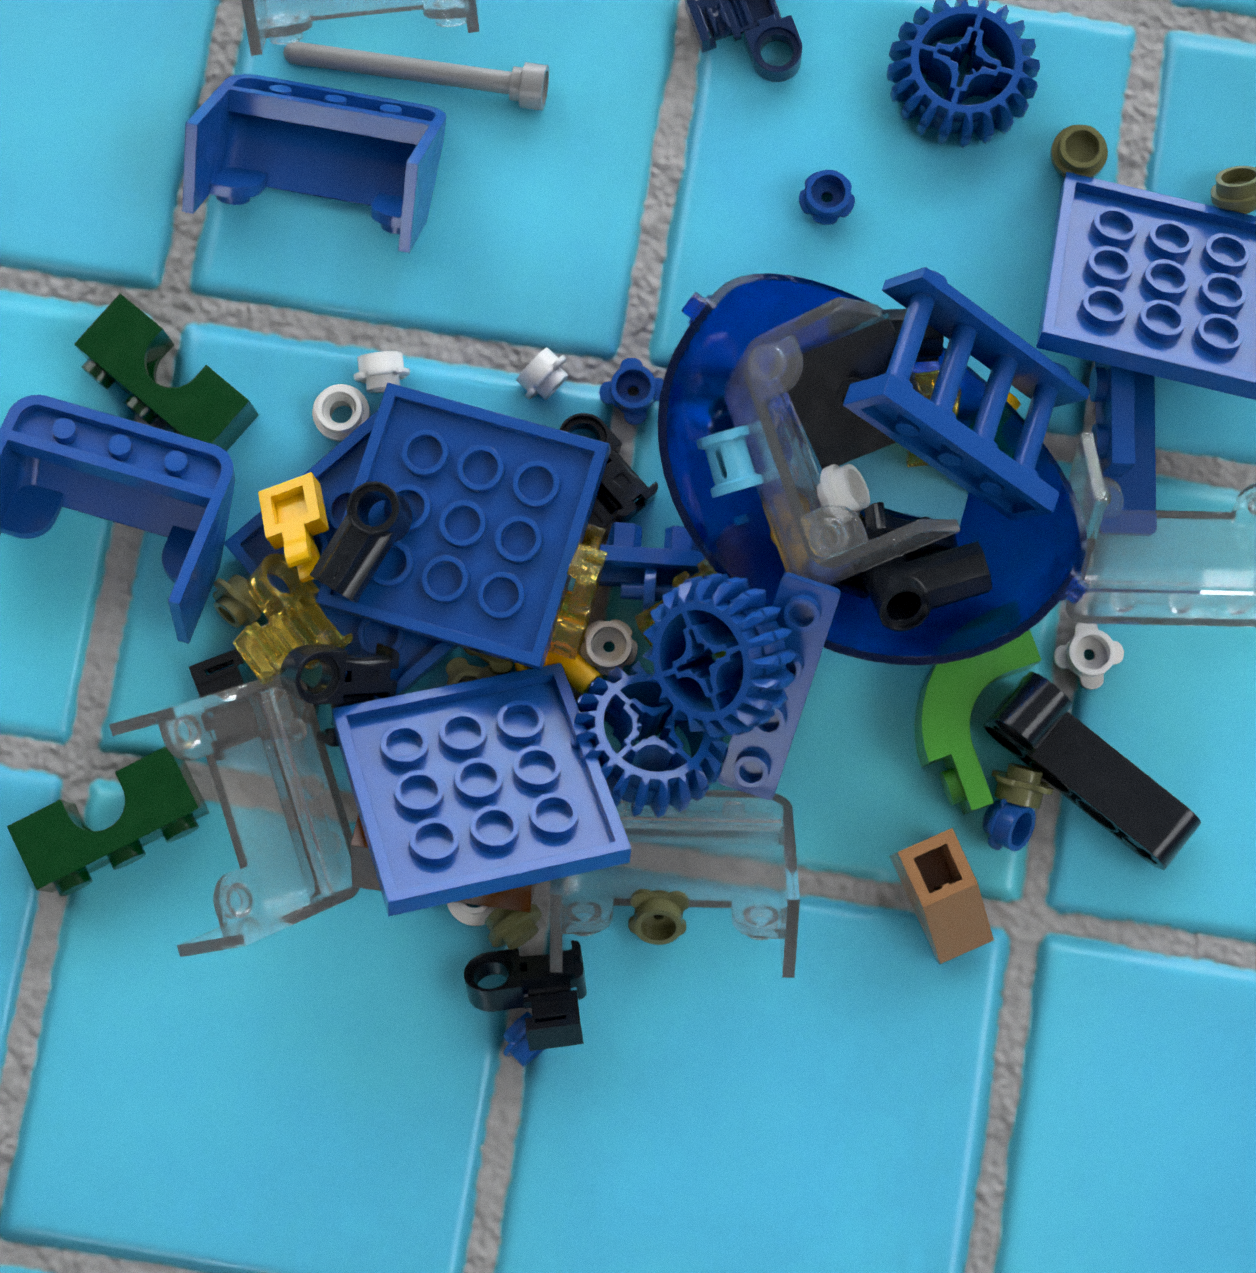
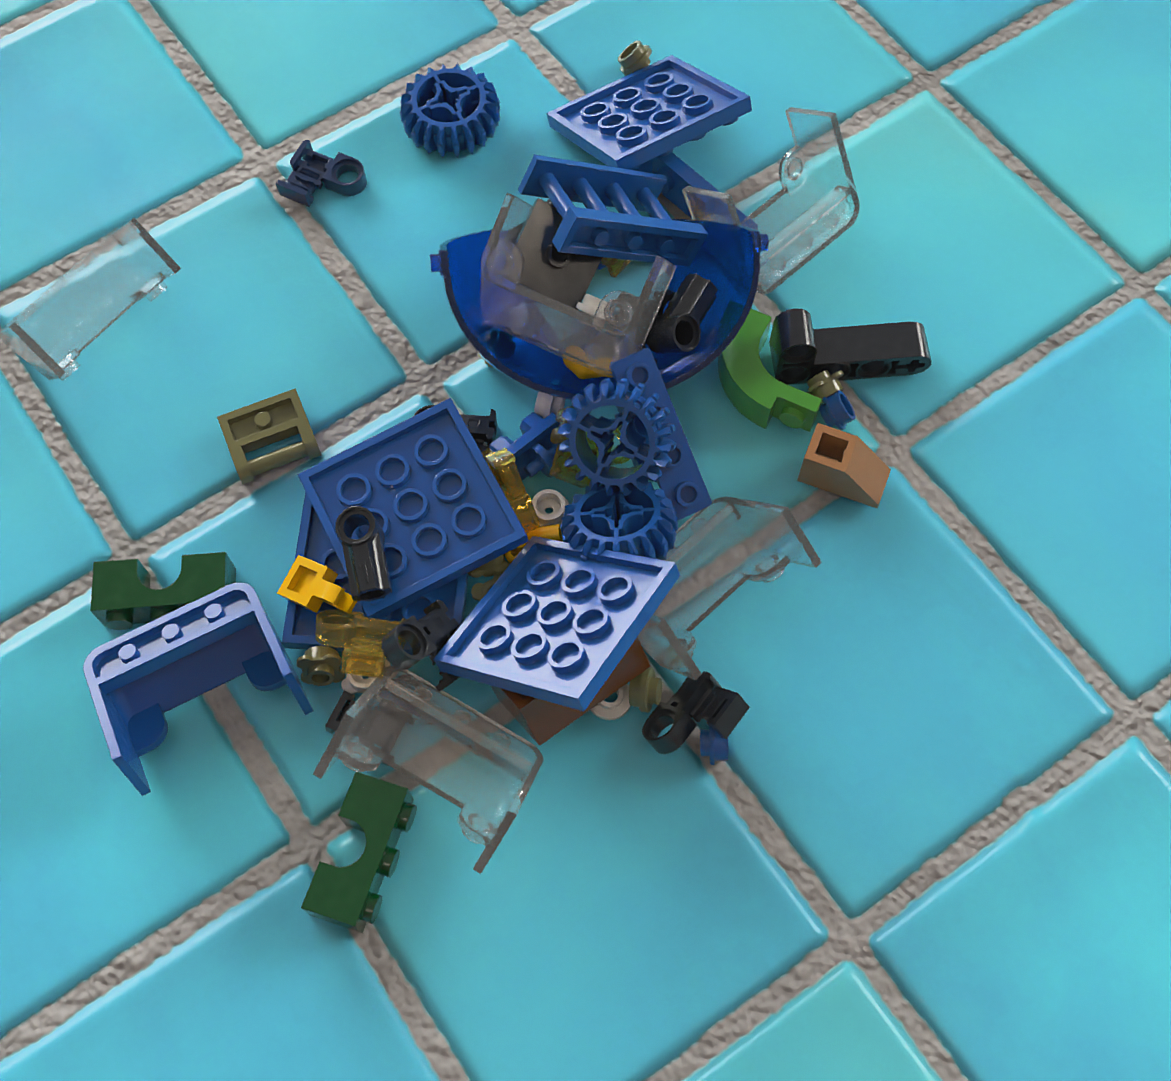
camera: 45 degrees left, 15 degrees down
(315, 144) = (146, 404): blue windscreen -> none
(334, 397) = (277, 514): white plate -> none
(379, 368) = (285, 483): white plate -> none
(419, 283) = (264, 425): none -> olive plate
(523, 84) = (227, 290): light grey piece -> none
(543, 374) = (378, 411): white plate -> none
(632, 374) = (430, 371): blue plate -> none
(658, 915) = (724, 617): olive plate -> none
(729, 461) = (511, 340): medium azure bush -> none
(830, 183) = (437, 208): blue plate -> none
(1079, 151) = (541, 100): olive plate -> none
(1105, 655) = (786, 295): white plate -> none

